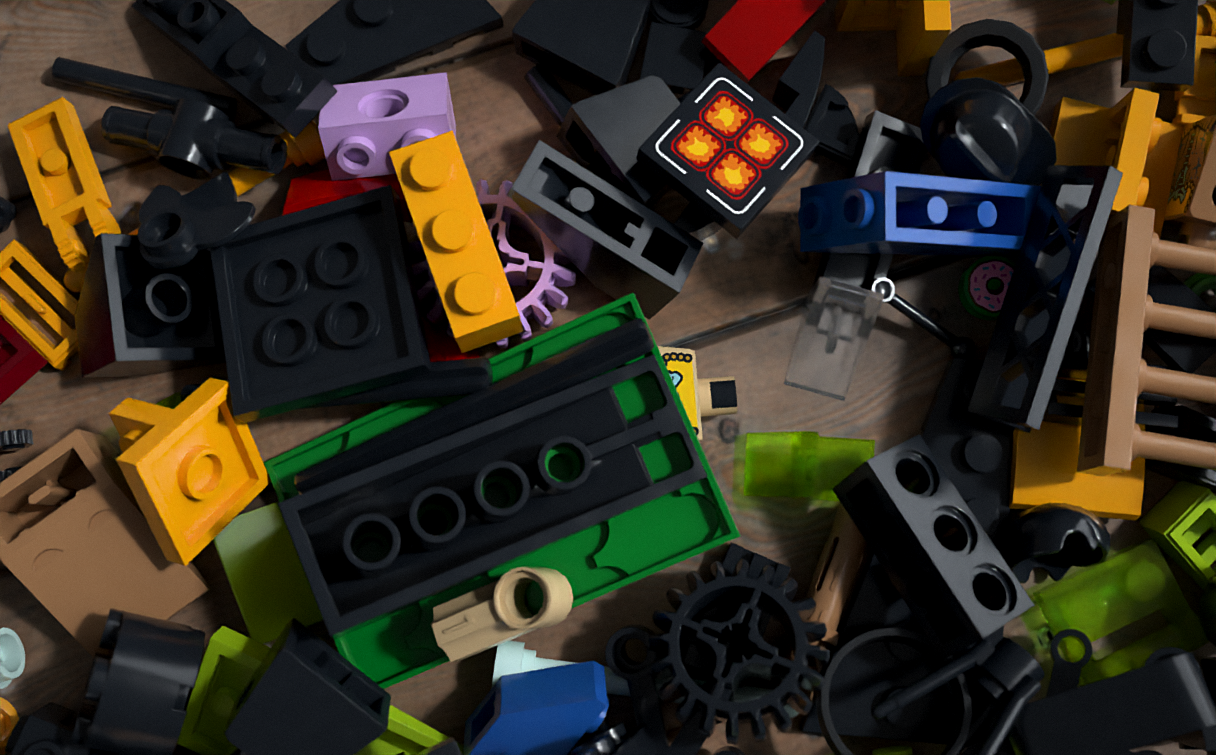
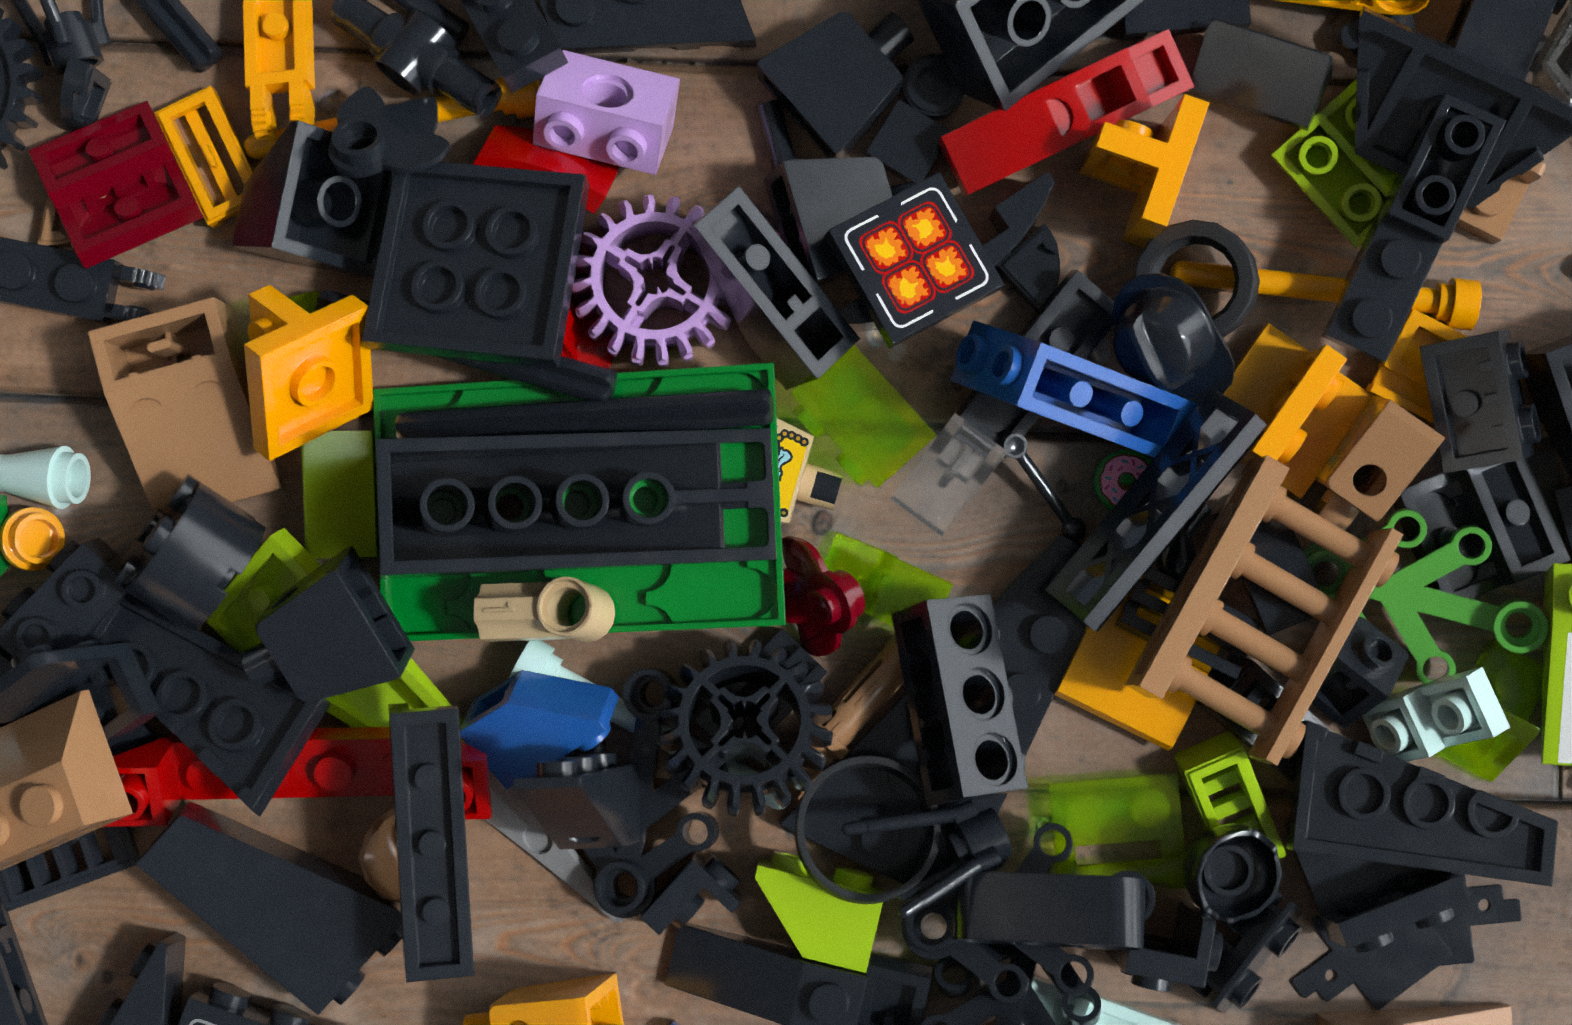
camera: 20 degrees right, 5 degrees up
(456, 241) = (625, 254): light orange brick -> none
(733, 317) = (863, 418): none -> clear neon green bracket
(761, 500) = (818, 599): none -> dark red plate
(1055, 540) = (1081, 738): black hair -> none

